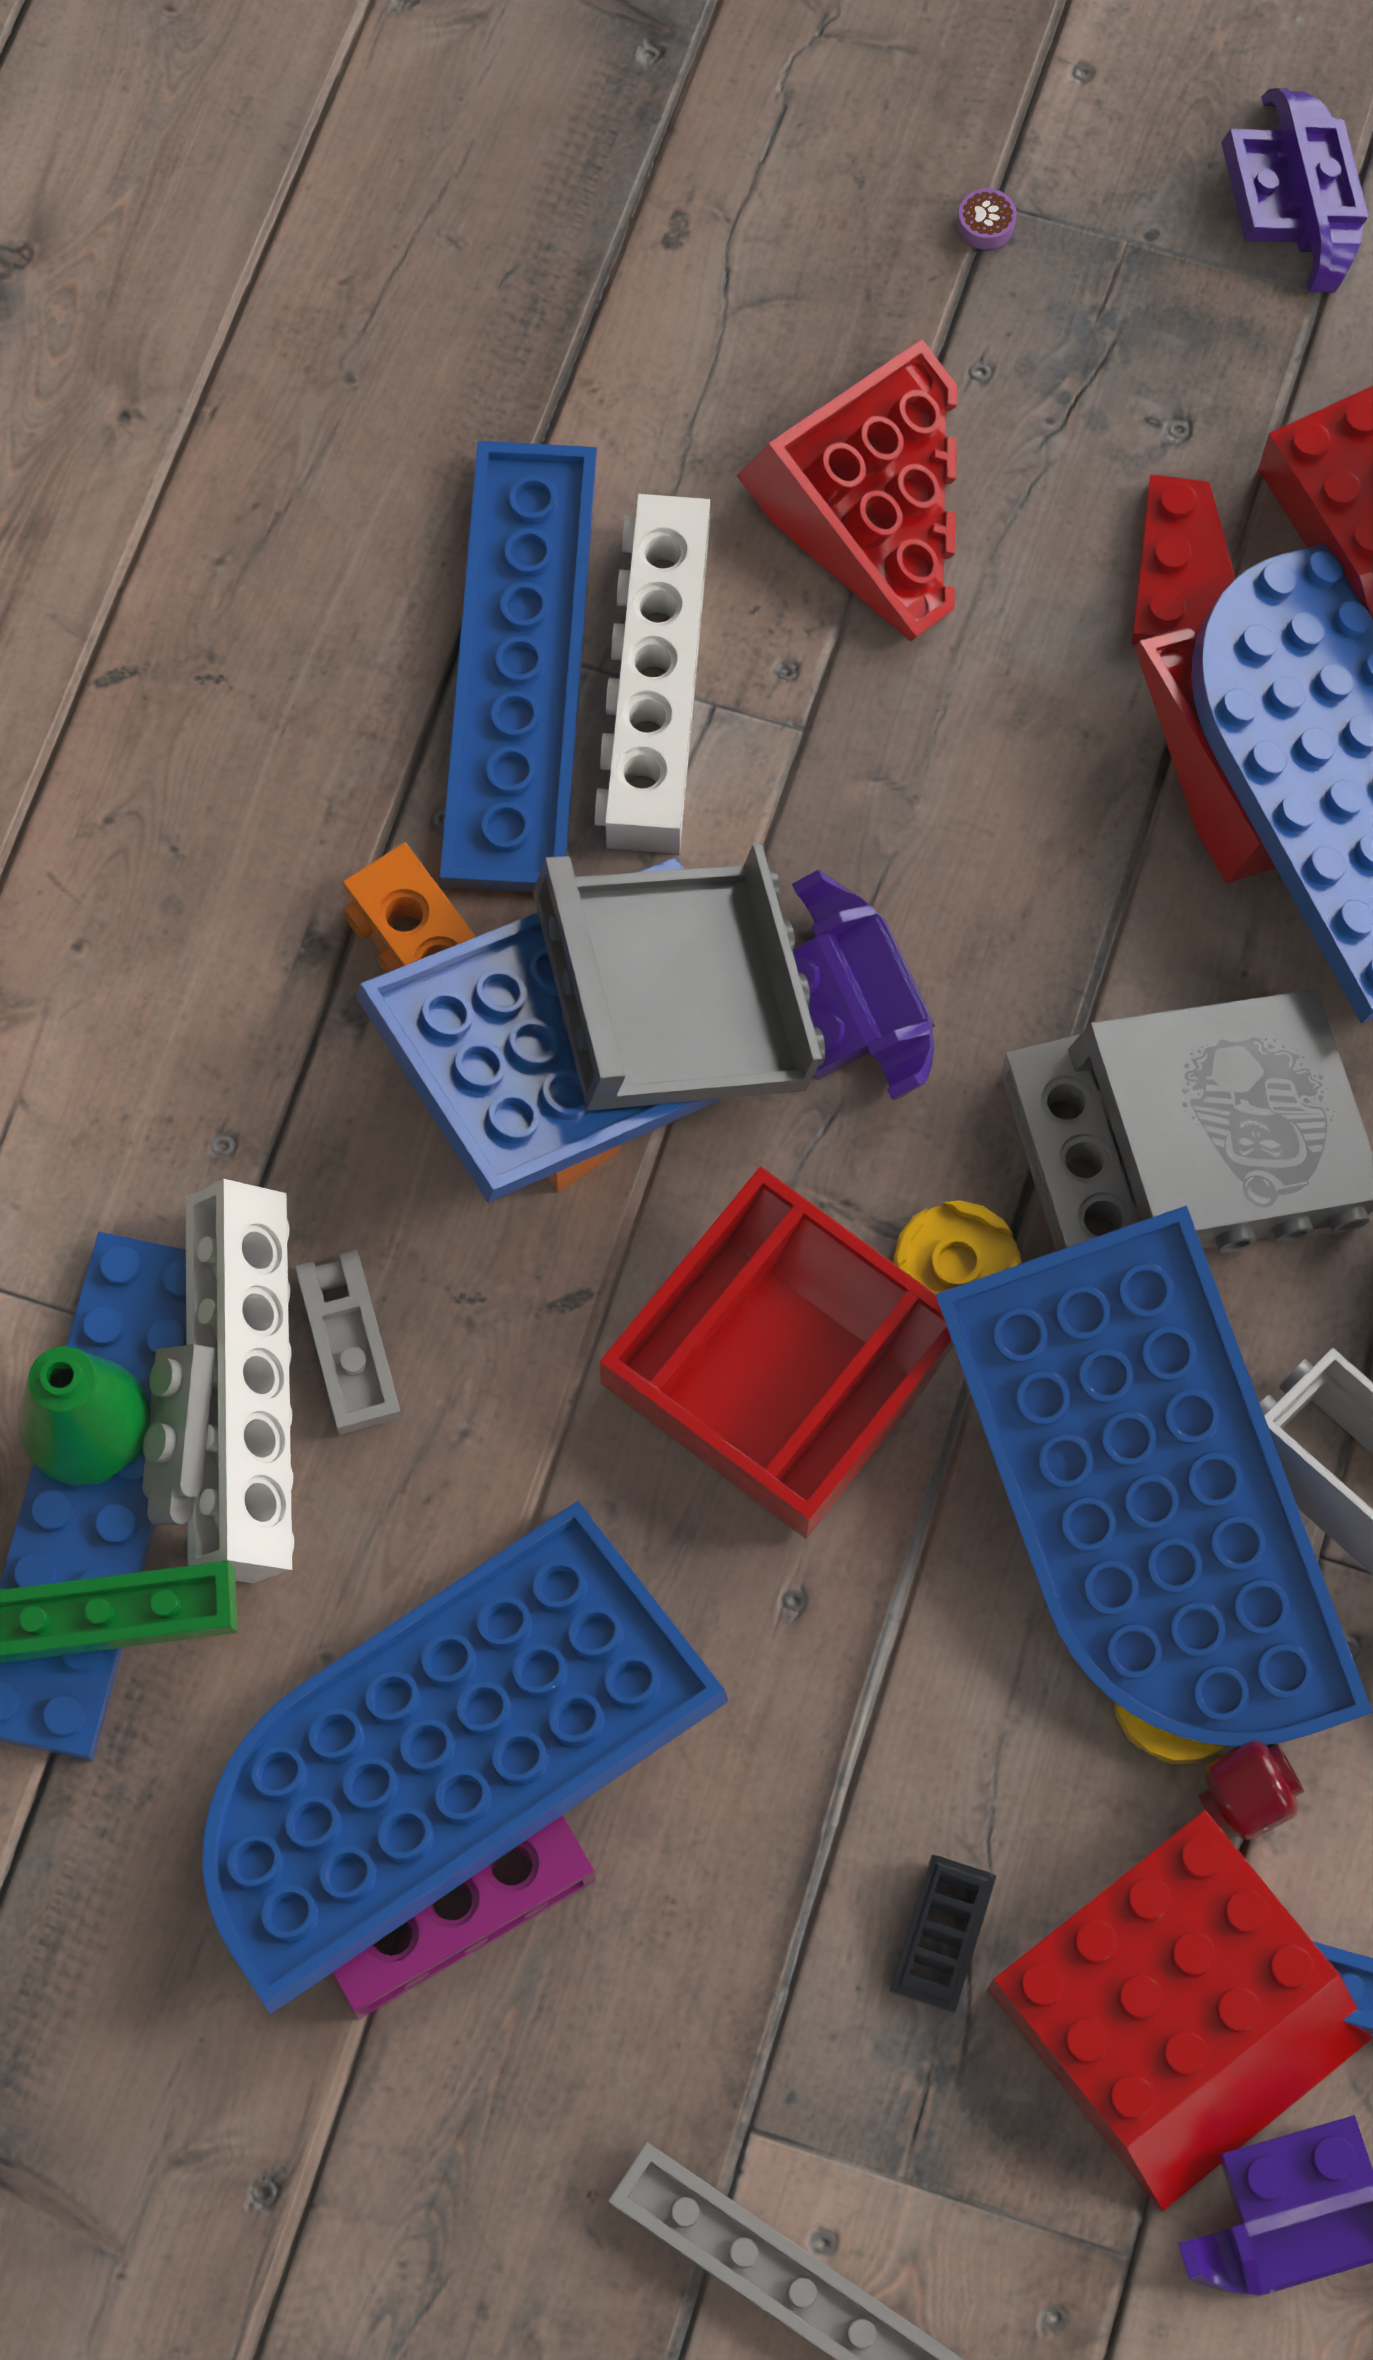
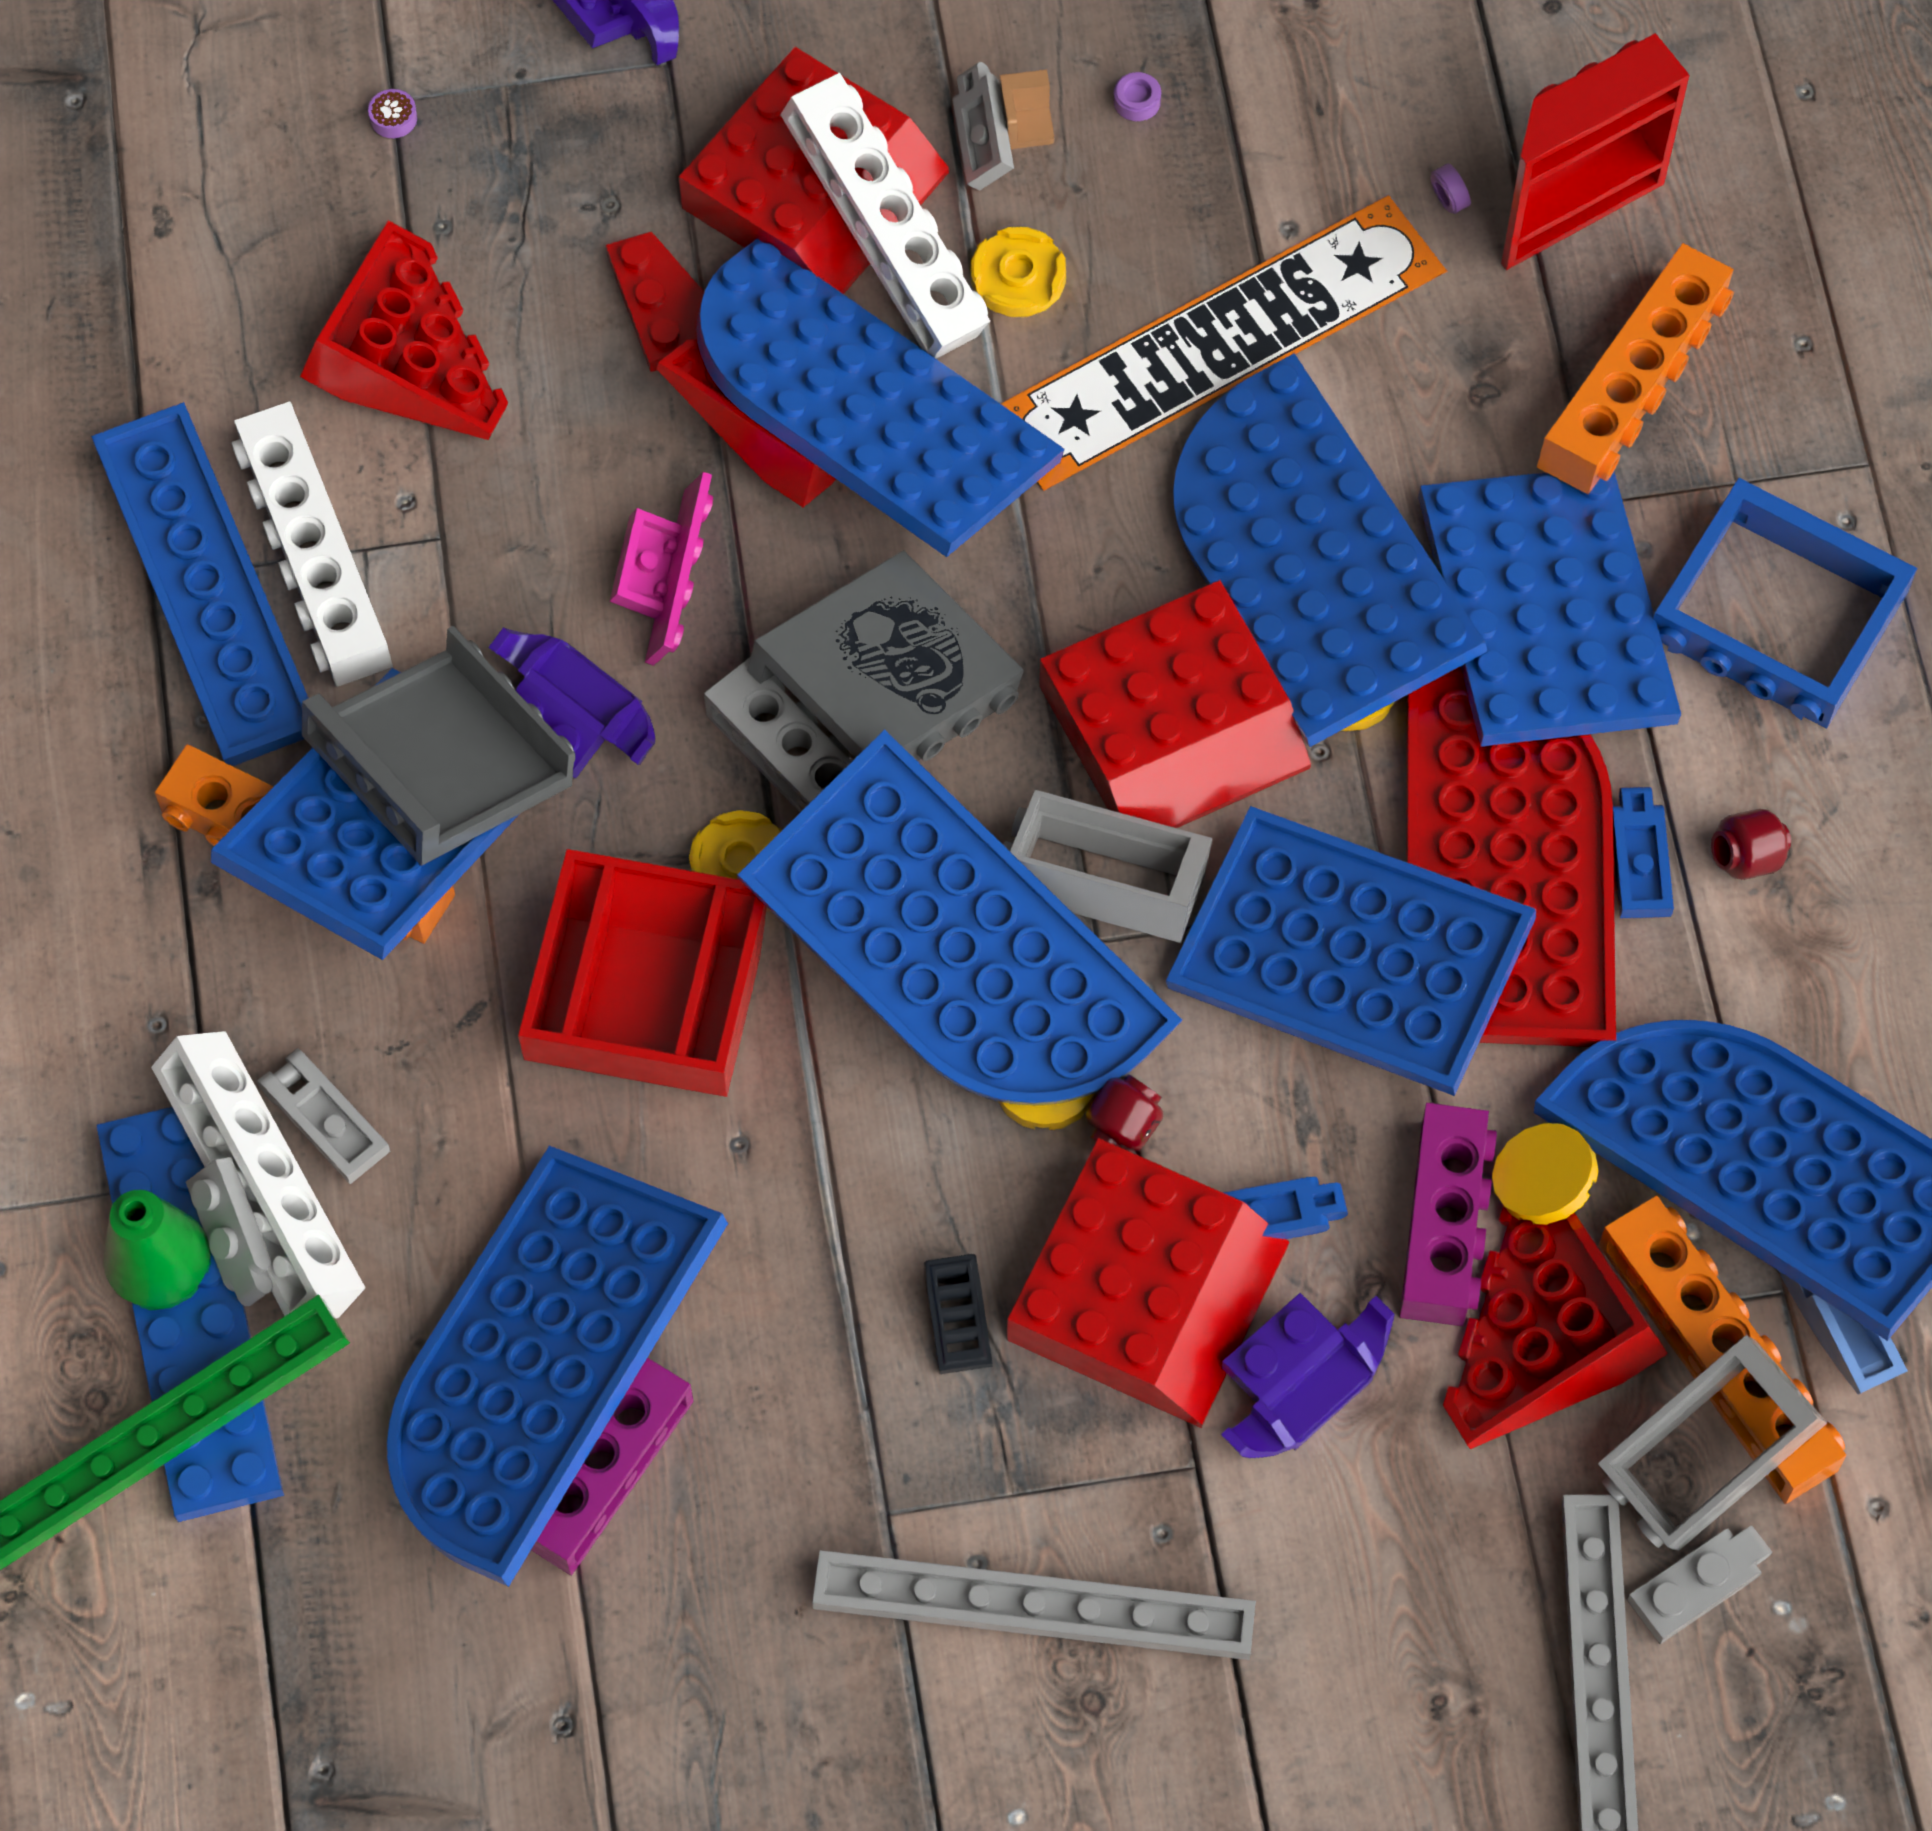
camera: 25 degrees left, 5 degrees down
(1028, 876) = (658, 564): none -> dark pink bracket

